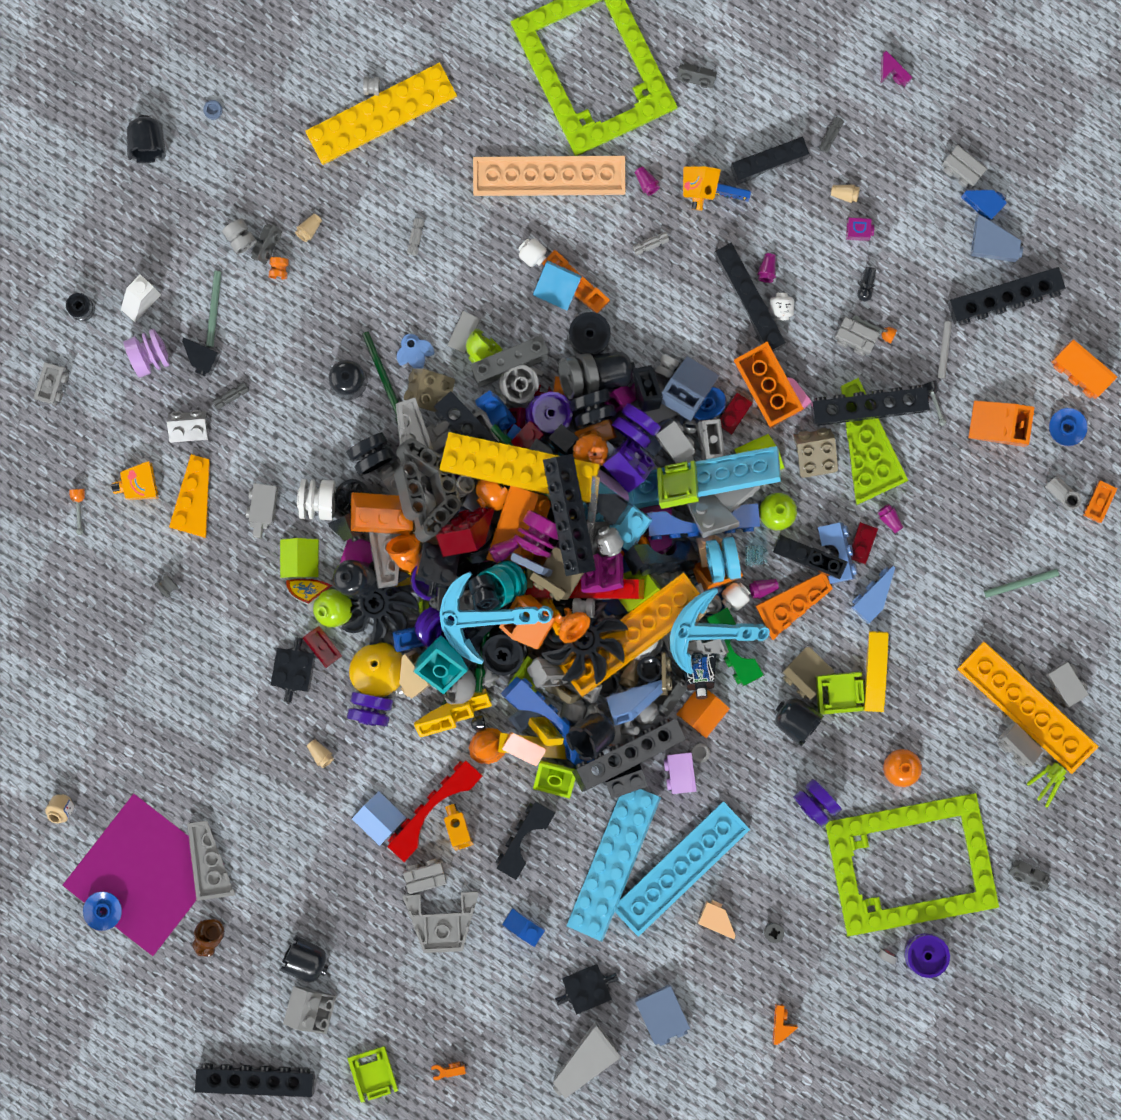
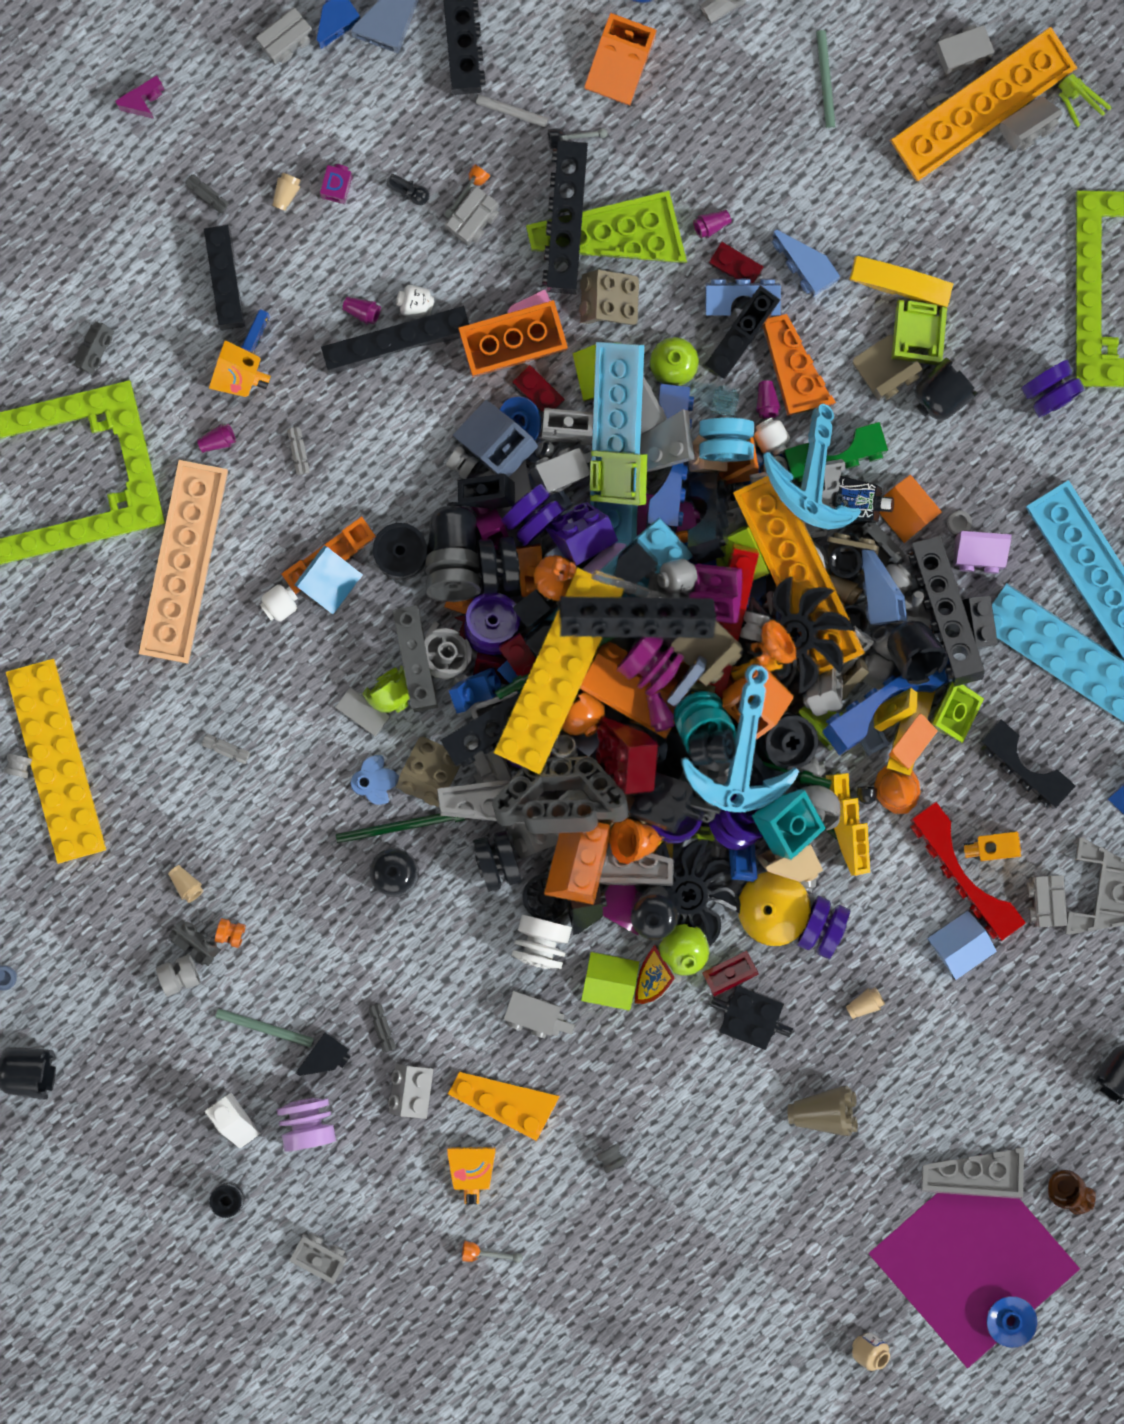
camera: 80 degrees left, 0 degrees up
(232, 740) = (826, 1112): none -> dark tan cone
(902, 768) = (1028, 275): orange cylinder -> none

